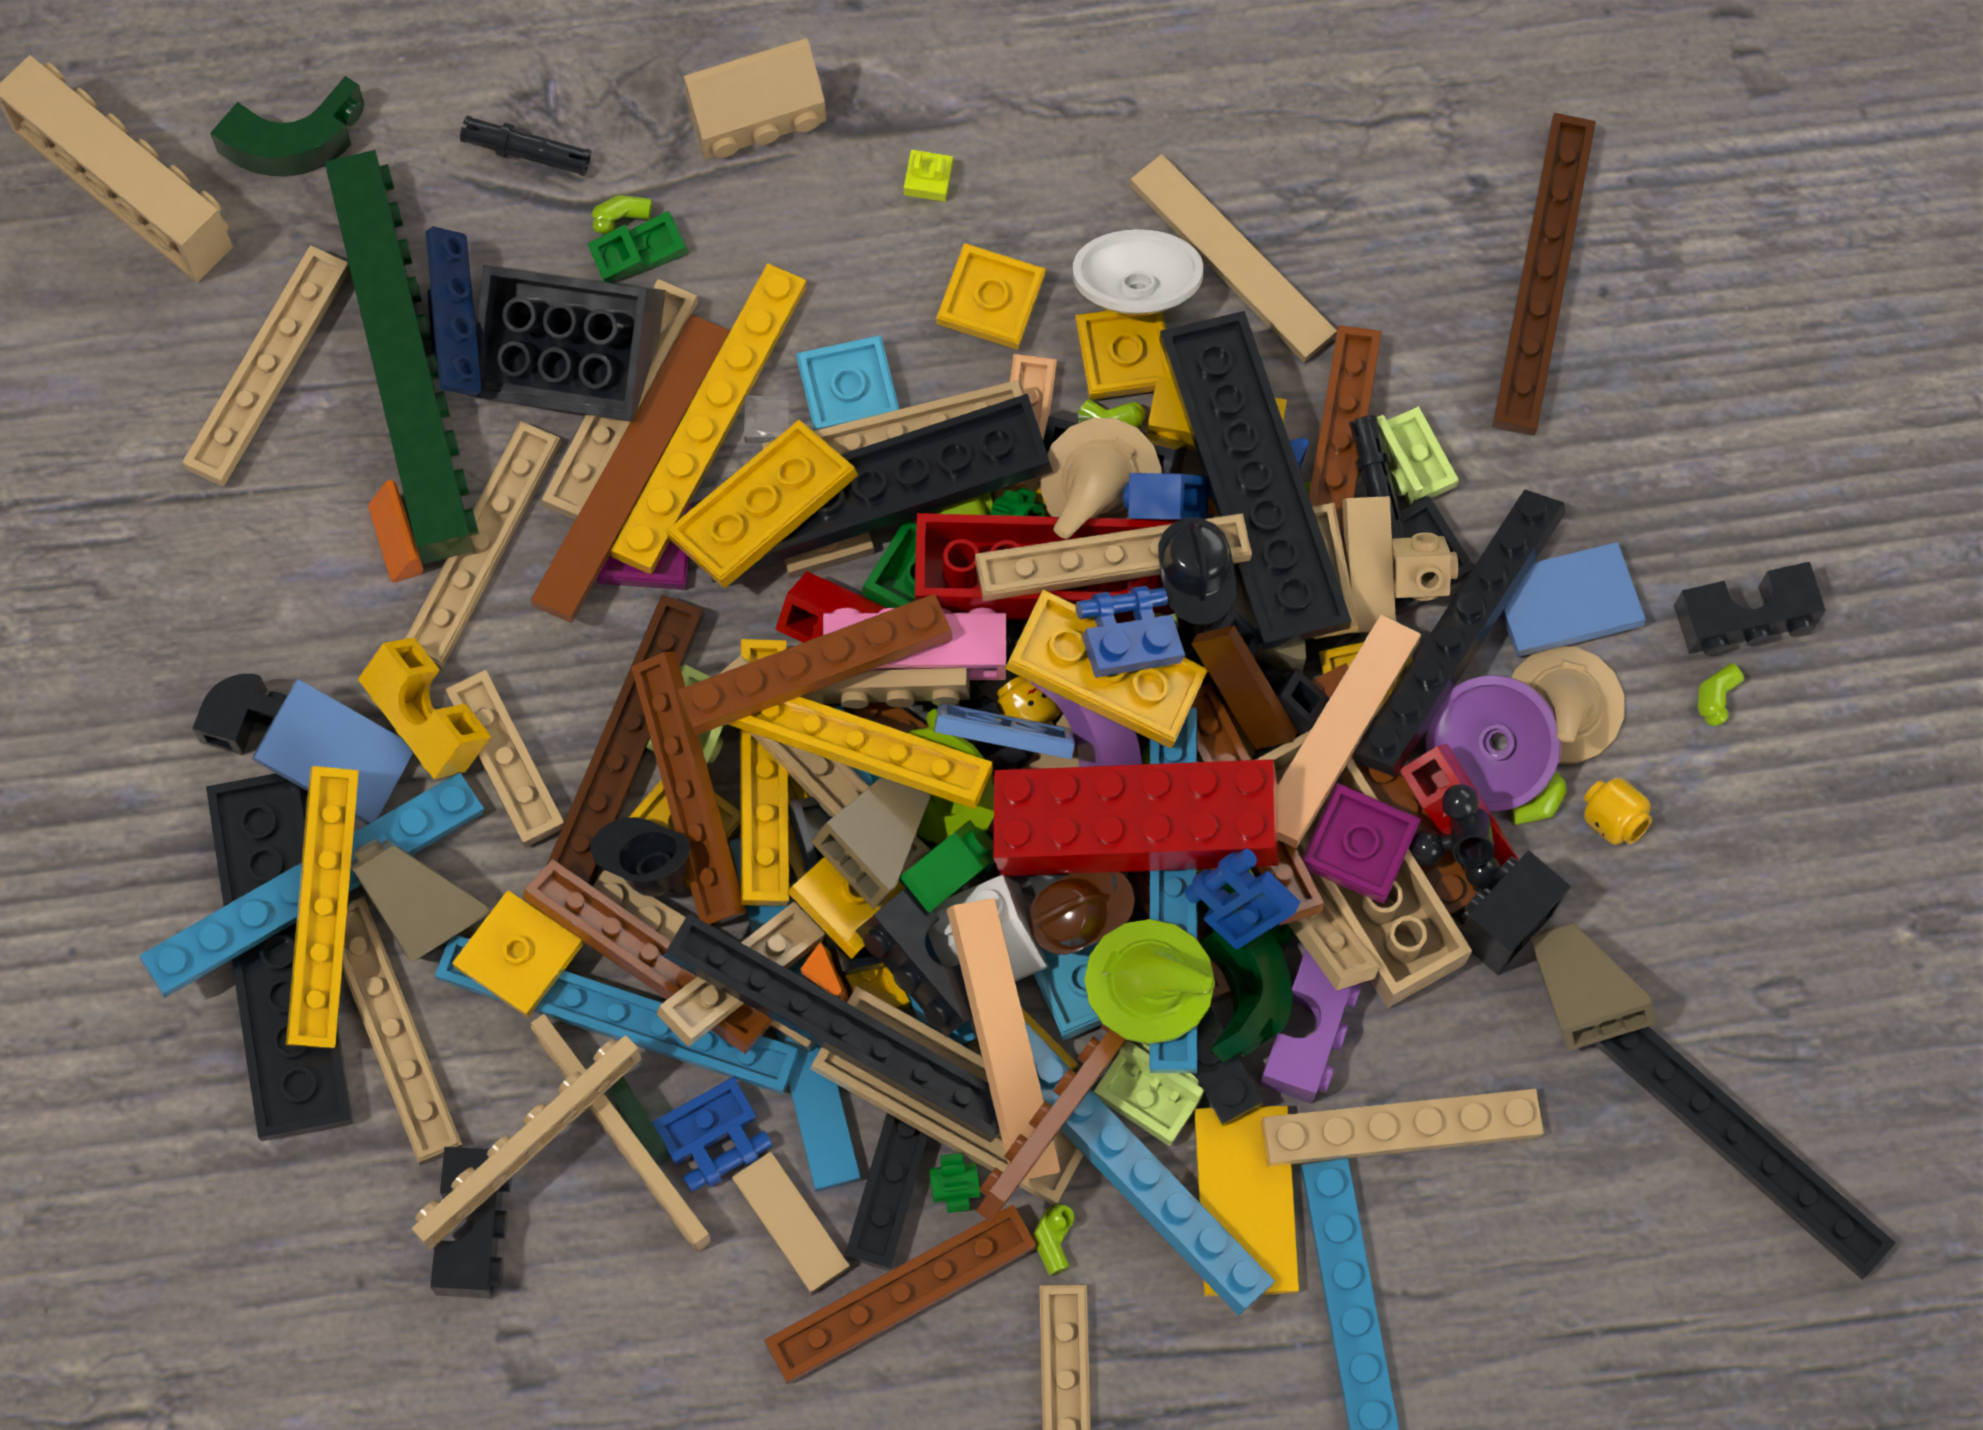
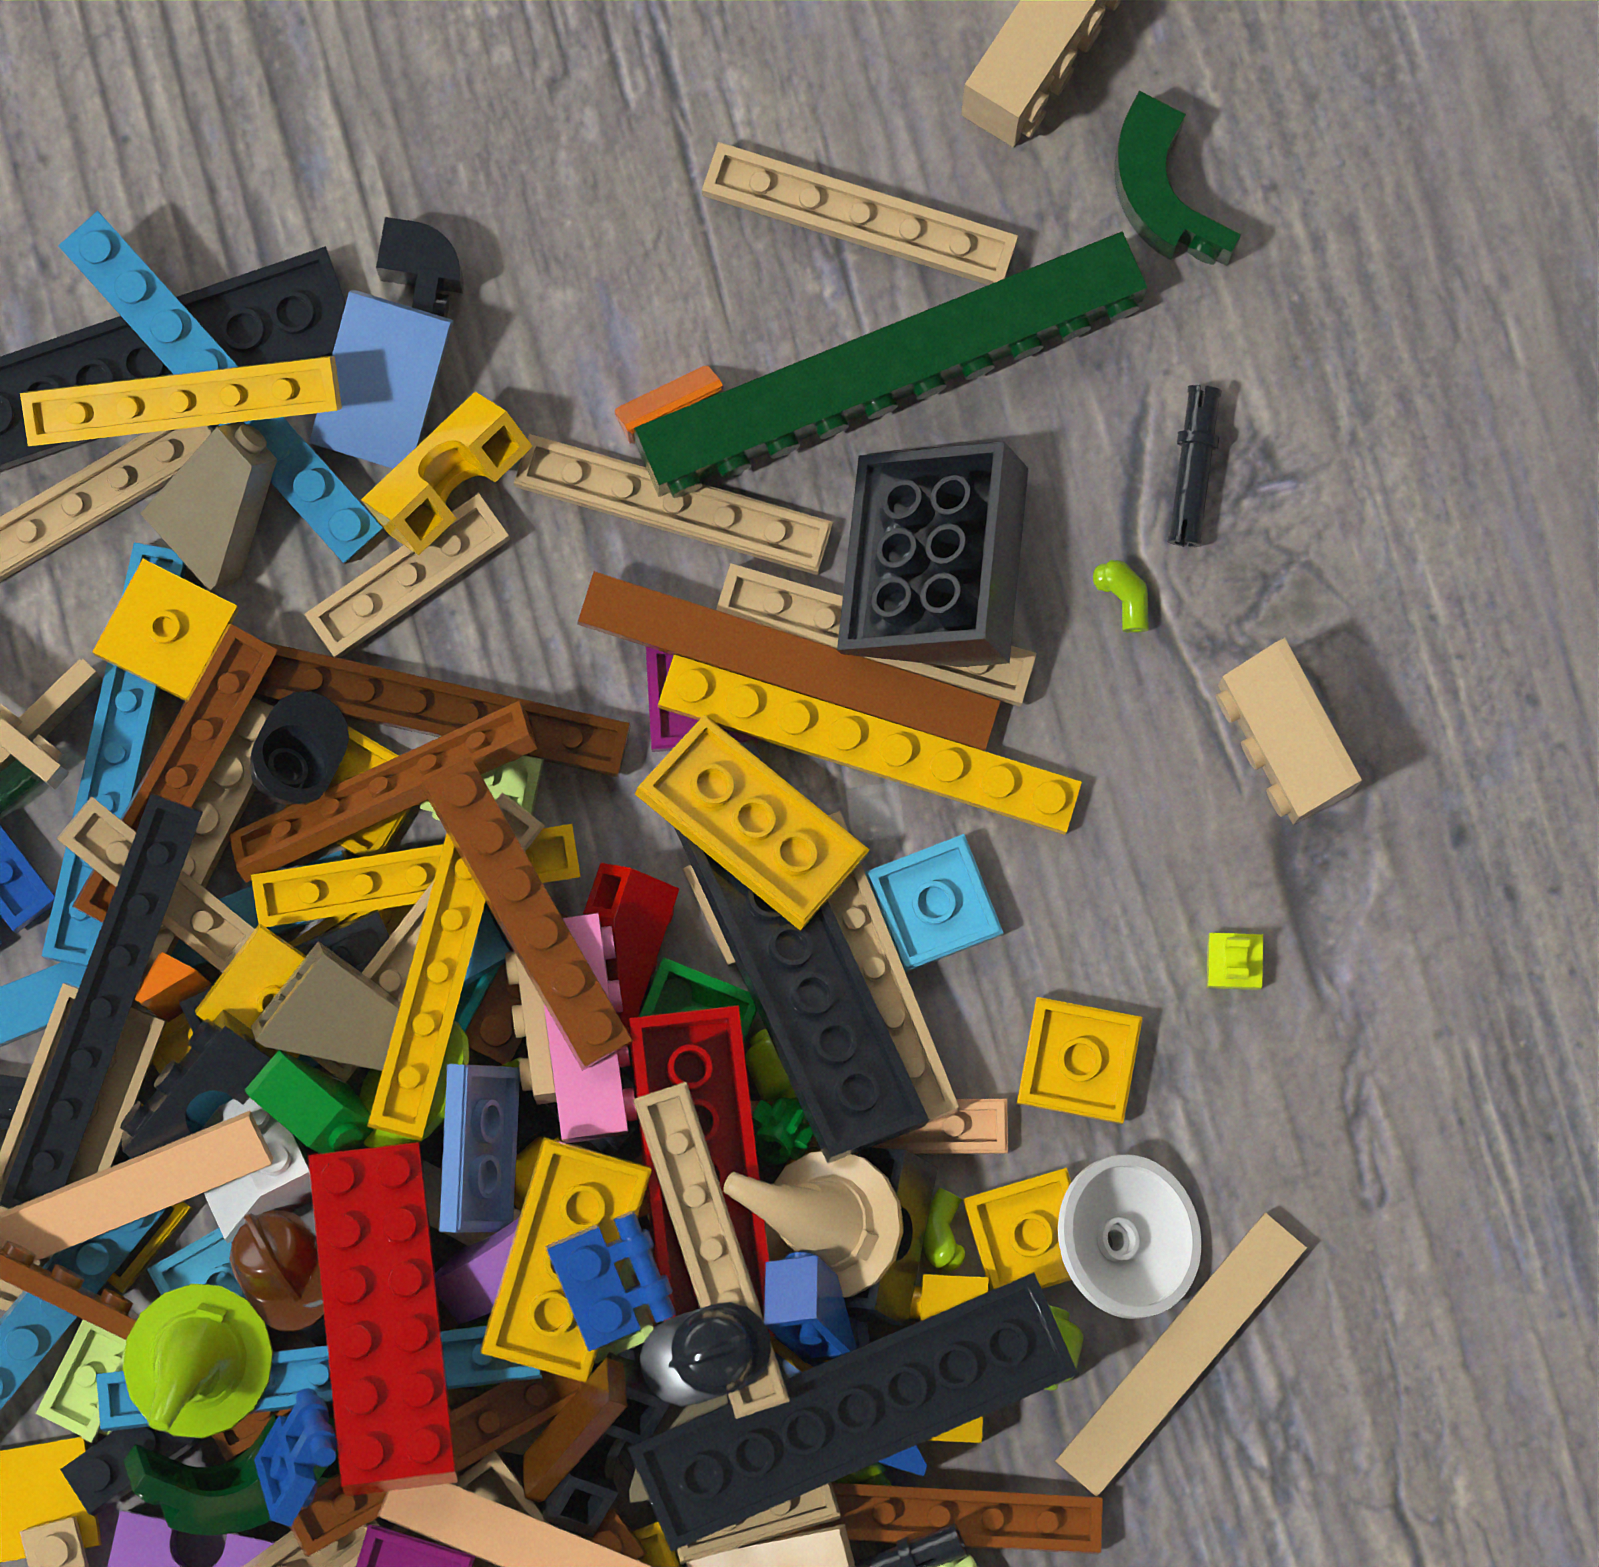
camera: 85 degrees right, 10 degrees up
(452, 311) = (946, 417): dark blue bracket -> none
(637, 250) = (1081, 623): green slope -> none

